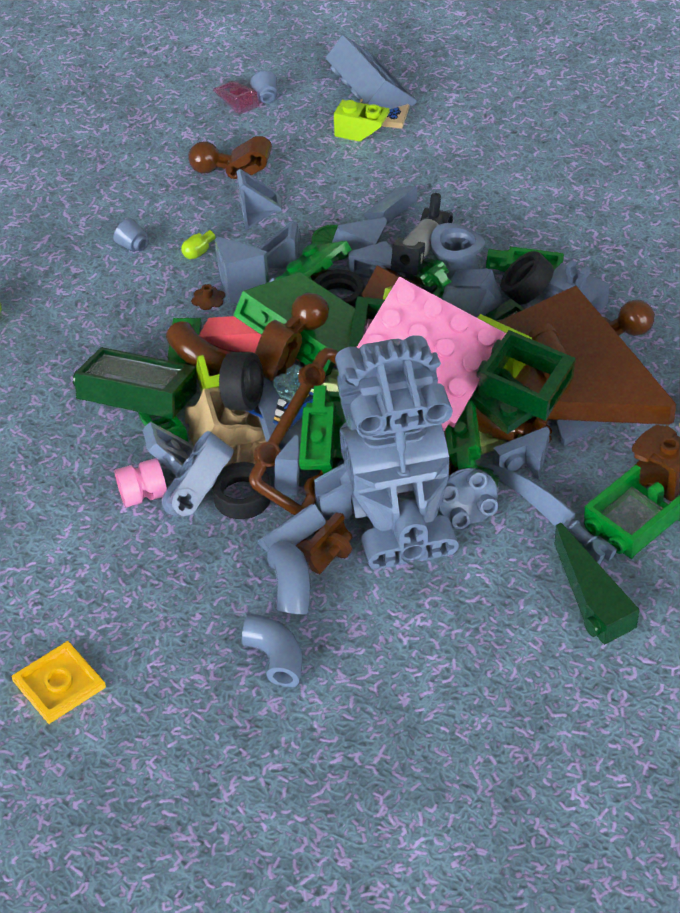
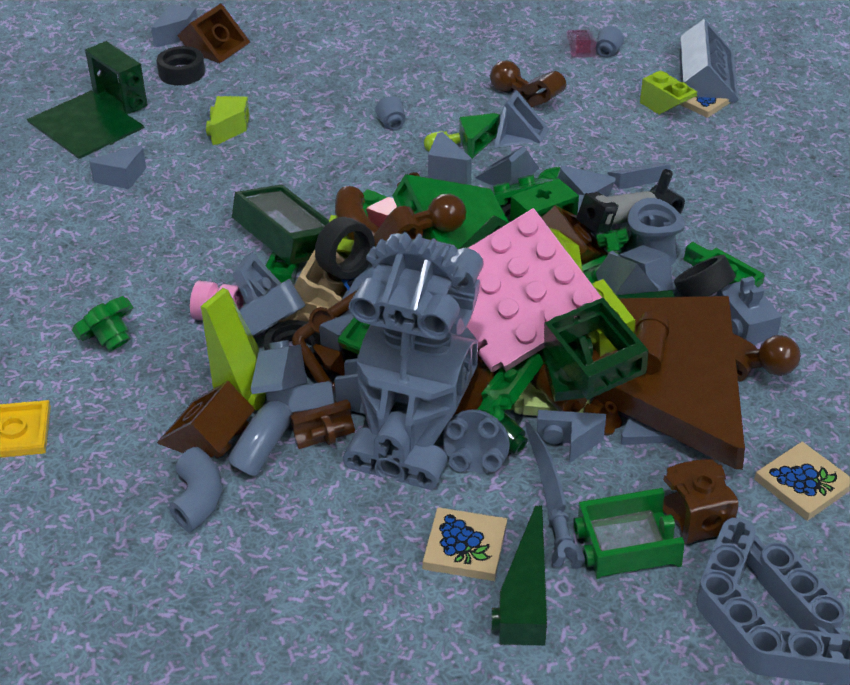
camera: 30 degrees right, 5 degrees down
(61, 548) = (106, 323): none -> green plant
(224, 220) = (478, 132): none -> green slope
(226, 527) = (230, 346): none -> lime wedge
(230, 589) = (210, 422): none -> reddish brown slope
(261, 513) = (278, 368): none -> sand blue slope
(289, 485) = (330, 359): none -> reddish brown slope
(353, 269) = (544, 198): none -> green brick
(518, 582) = (465, 544): none -> tan tile

